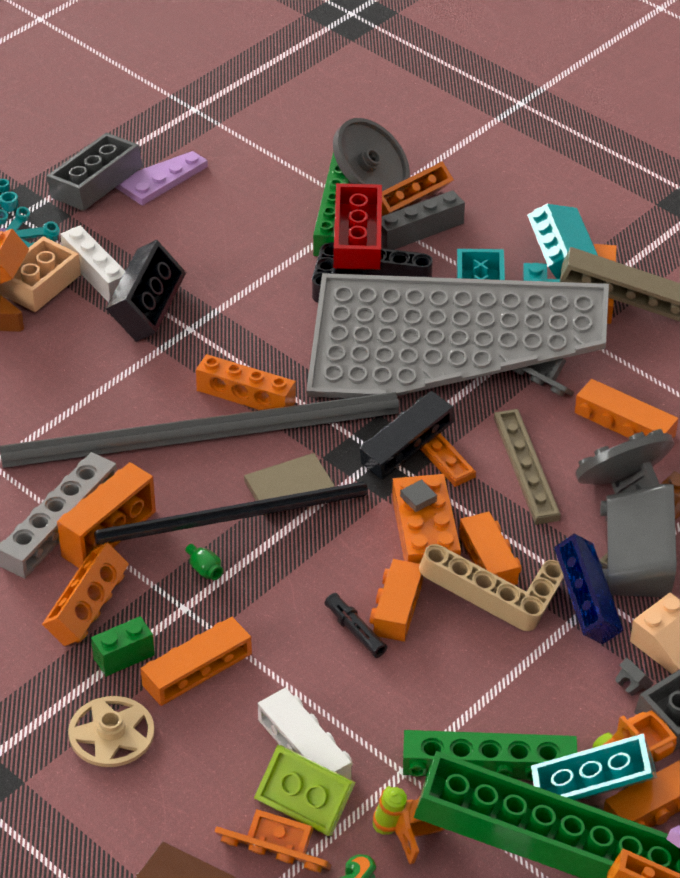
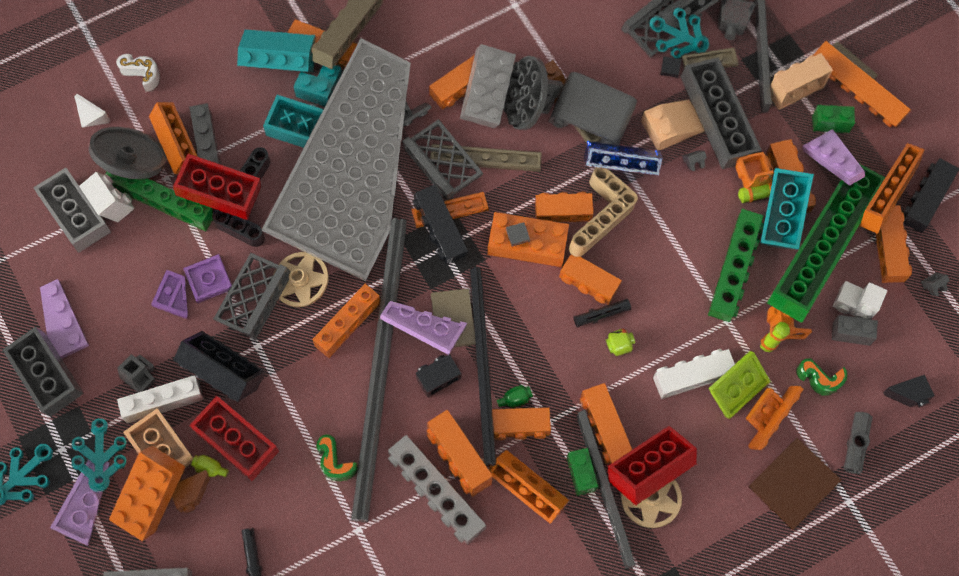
camera: 75 degrees left, 25 degrees up
(30, 320) = (210, 464): none -> lime plant
(65, 328) = (234, 438): none -> red brick
(69, 413) = (329, 462): none -> green animal
(96, 682) = (606, 491): none -> dark grey tile
(120, 237) = (136, 373): none -> dark grey brick
(148, 704) = (652, 465): none -> red brick
(169, 573) = (521, 423): none -> orange brick
(206, 482) = (438, 375): none -> black brick
(223, 244) = (172, 295): none -> medium lavender wing
(252, 314) = (264, 305): none -> dark grey fence
(255, 269) = (208, 278): none -> medium lavender tile
(262, 448) = (433, 330): none -> lavender wing
(282, 335) = (303, 278): none -> tan wheel
(288, 144) = (72, 210): none -> light grey brick
(306, 159) = (105, 198): none -> white brick
(318, 648) = (620, 342): none -> lime head
(413, 131) = (89, 113): none -> white slope
(484, 411) = (427, 165): none -> dark grey fence
(486, 156) = (140, 66): none -> white animal
(614, 421) = (487, 86): none -> light grey brick

